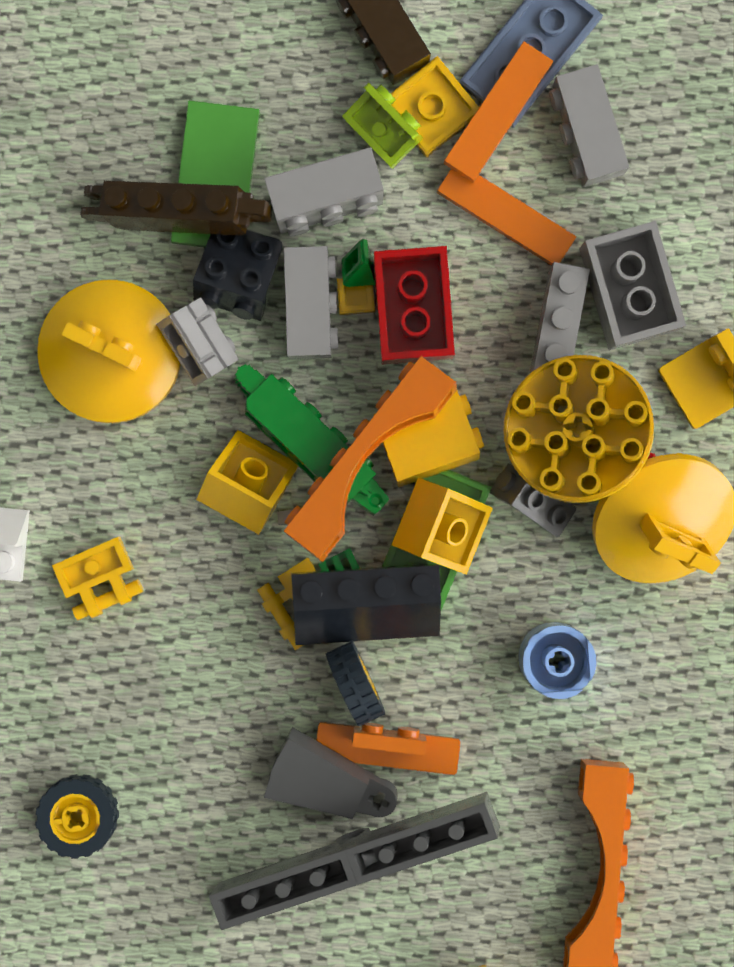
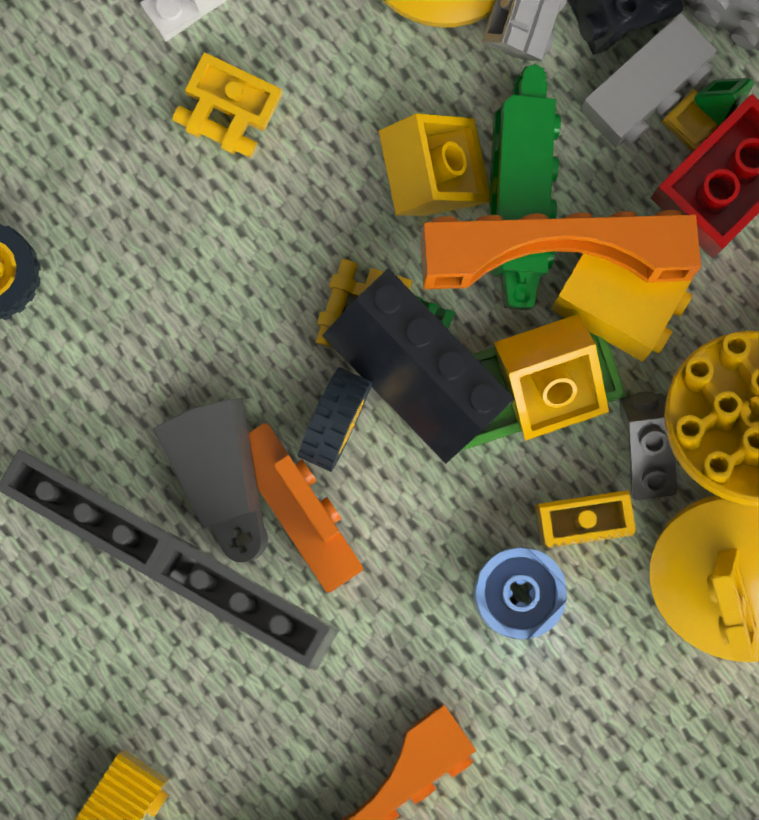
camera: 50 degrees right, 5 degrees down
(546, 581) = (585, 519): none -> yellow brick

